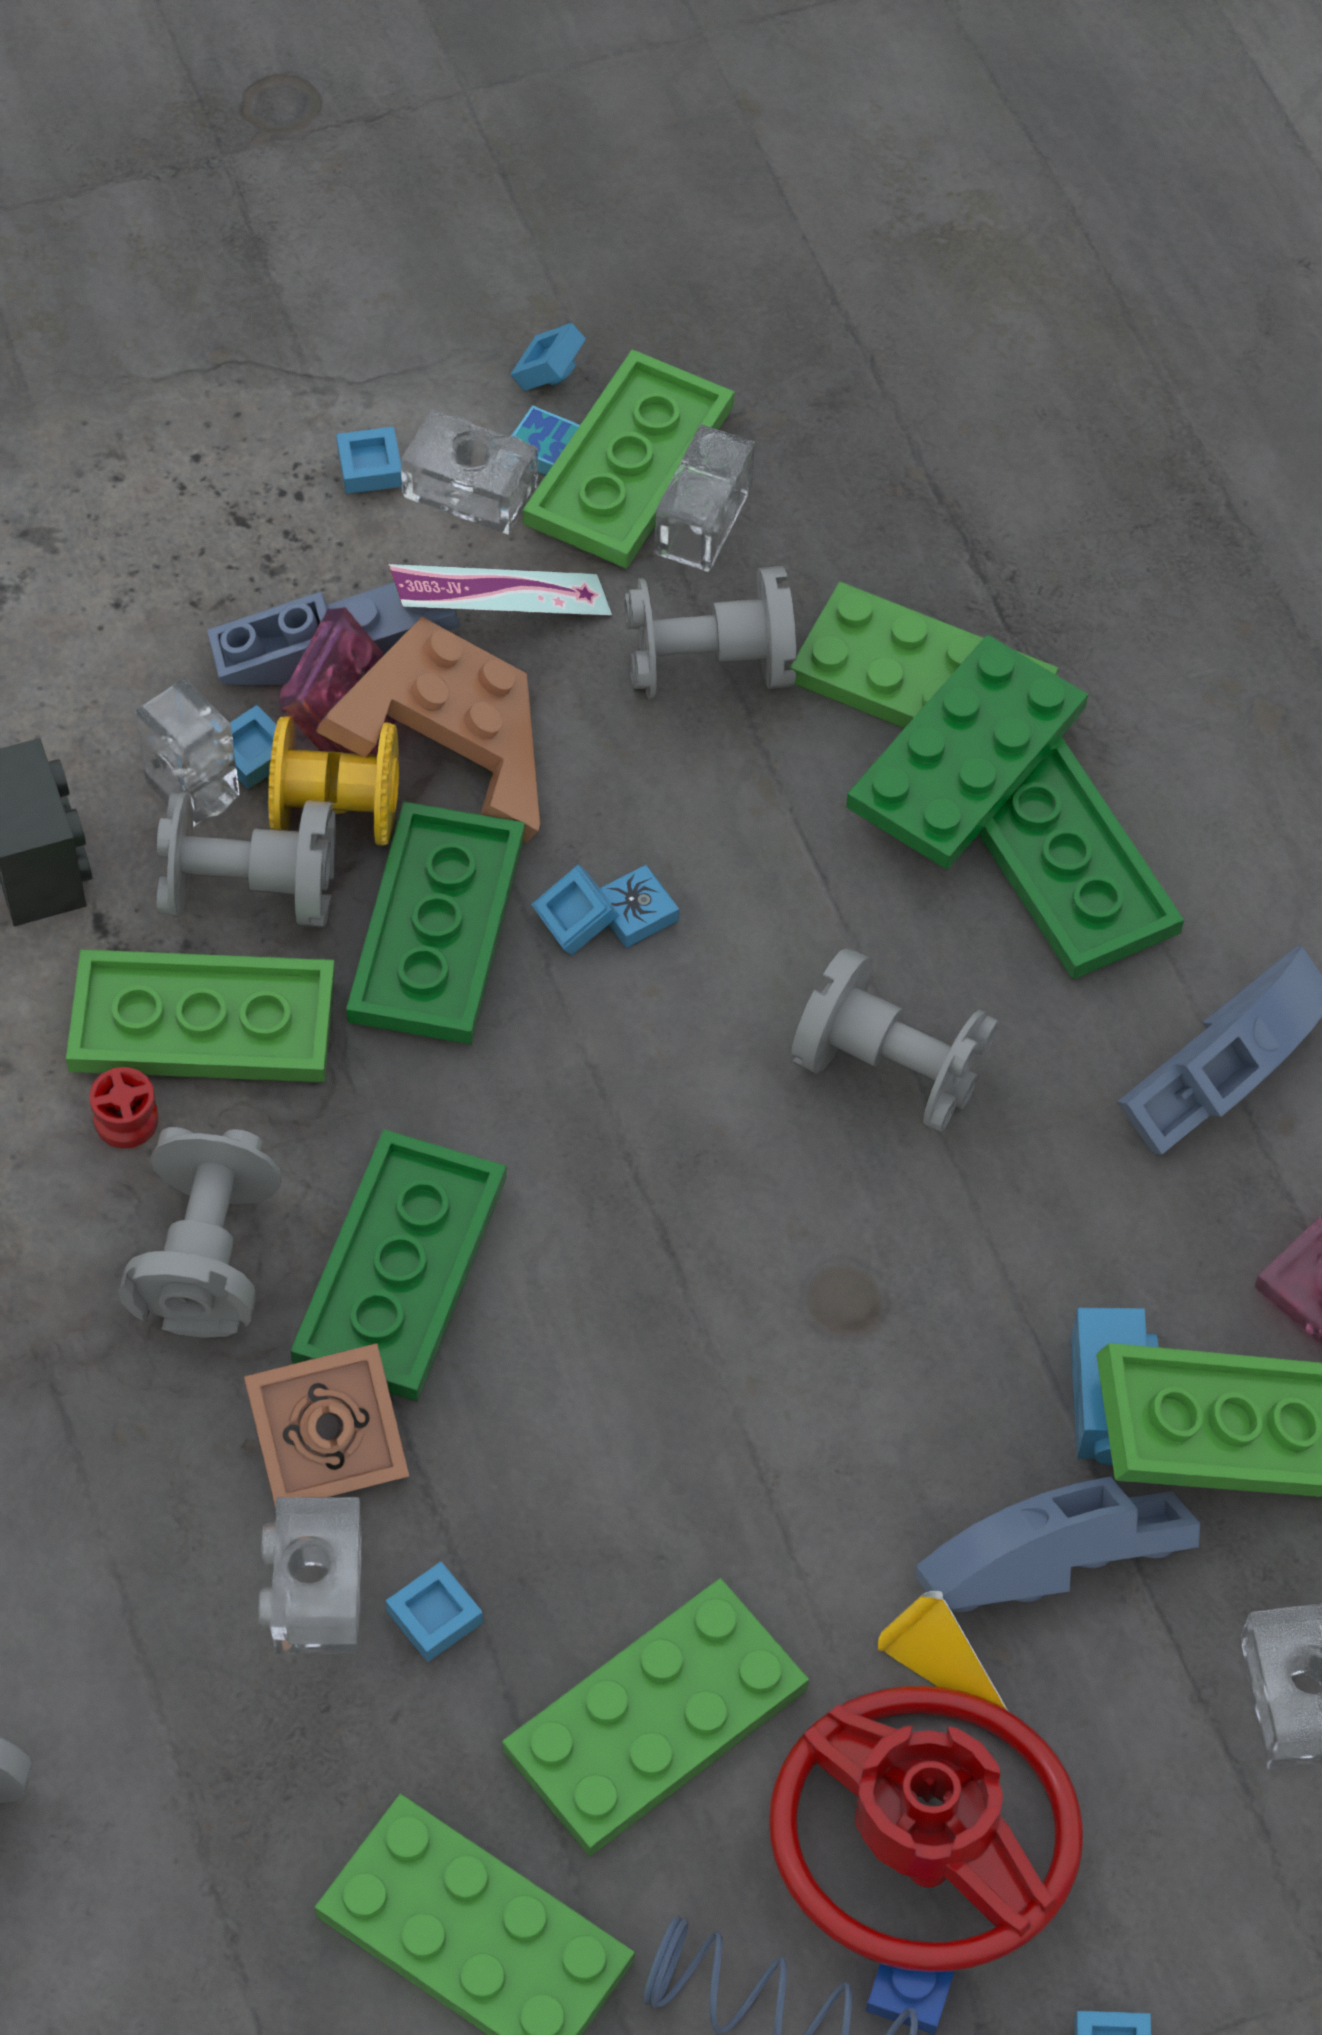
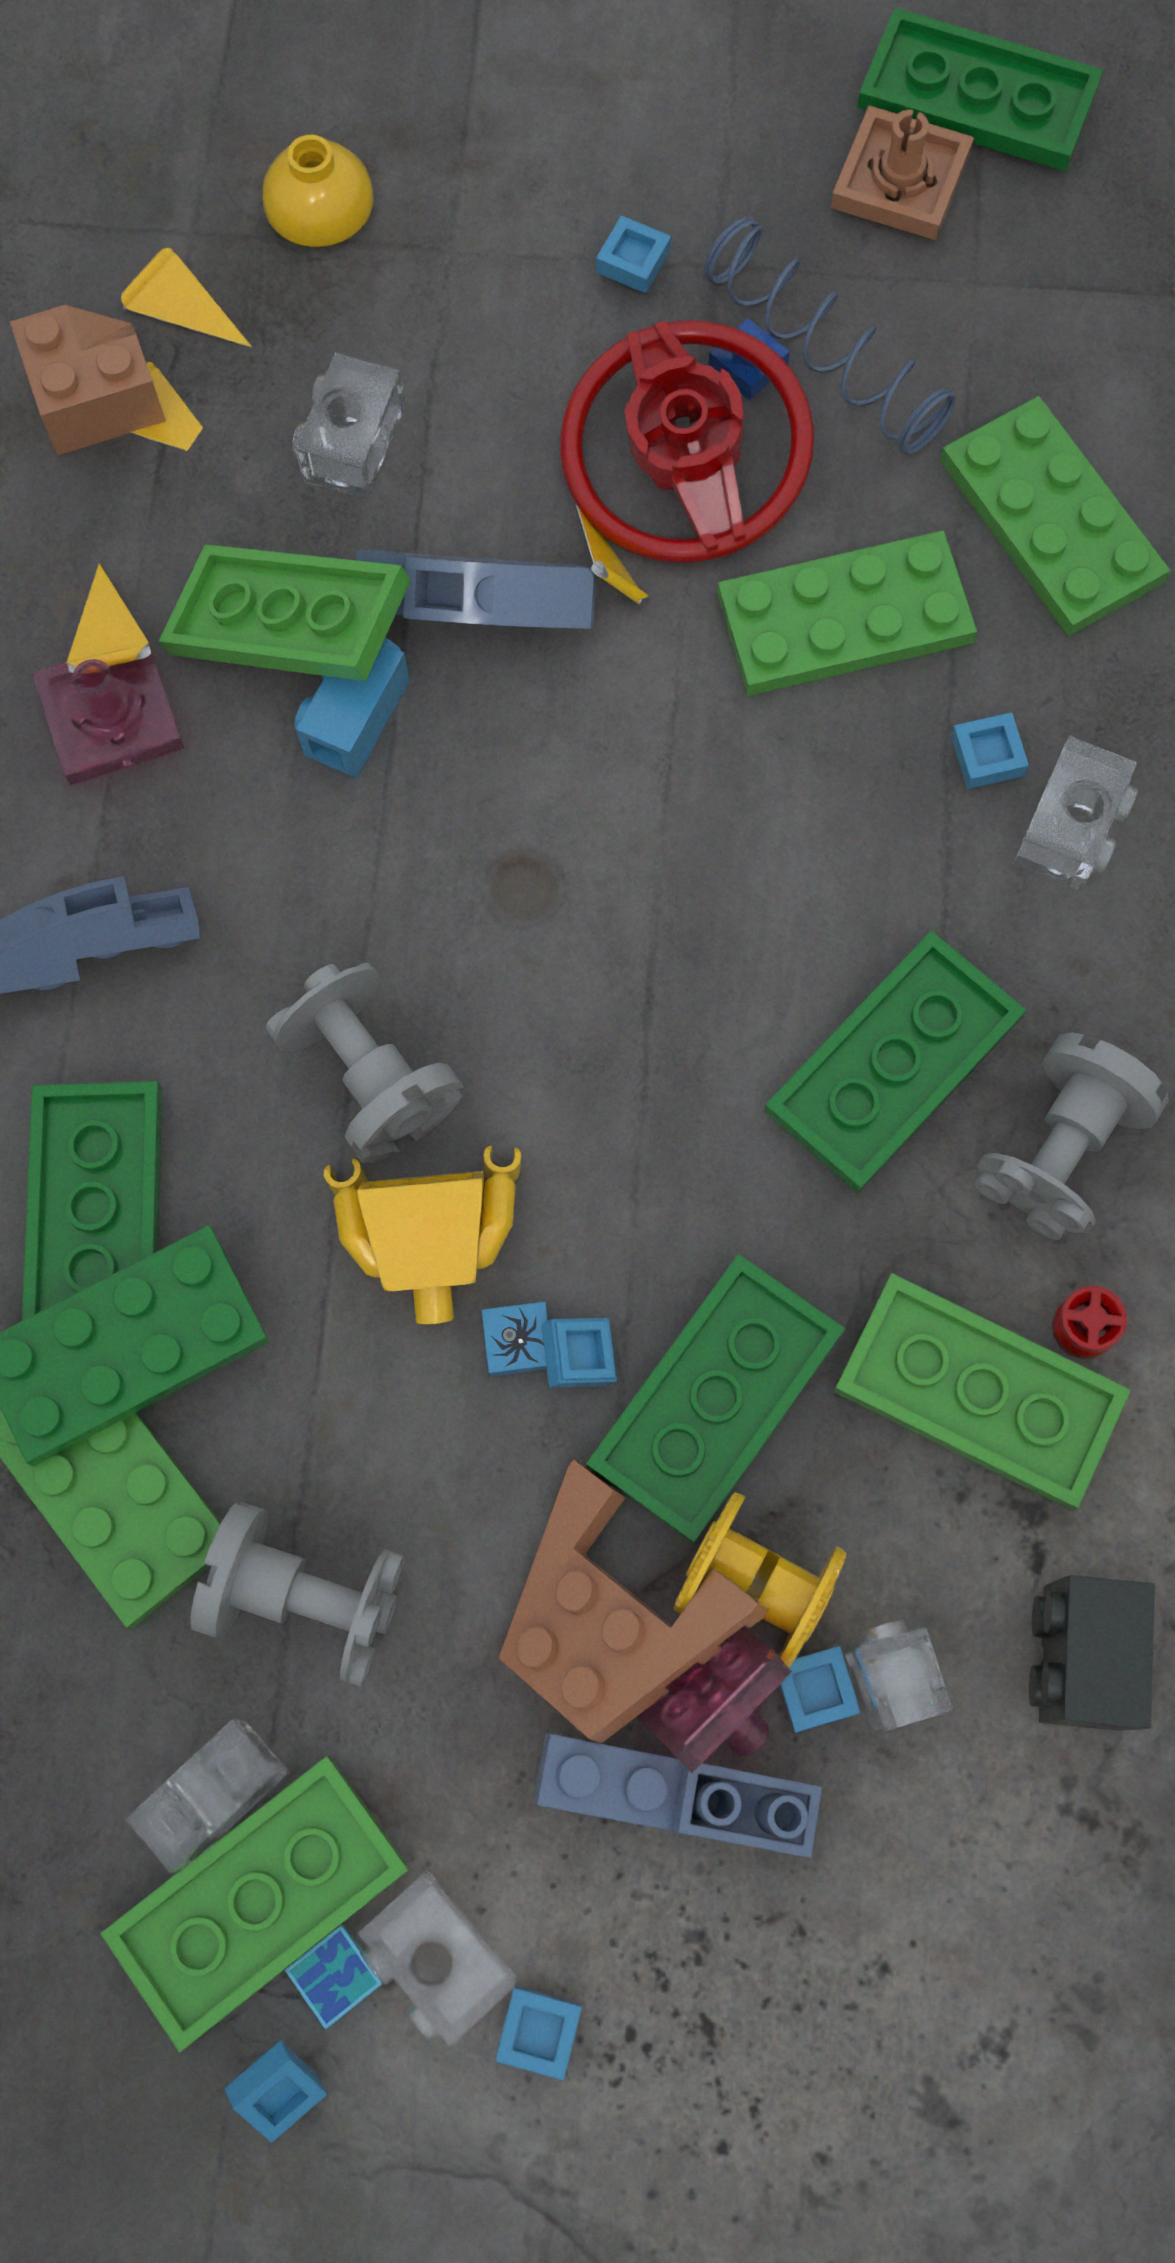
camera: 150 degrees left, 15 degrees up
(271, 861) = (860, 1510): light grey piece -> none
(326, 1426) = (1025, 913): nougat plate -> none
(499, 590) = (487, 1758): sticker -> none
(760, 938) = (426, 1229): none -> yellow torso

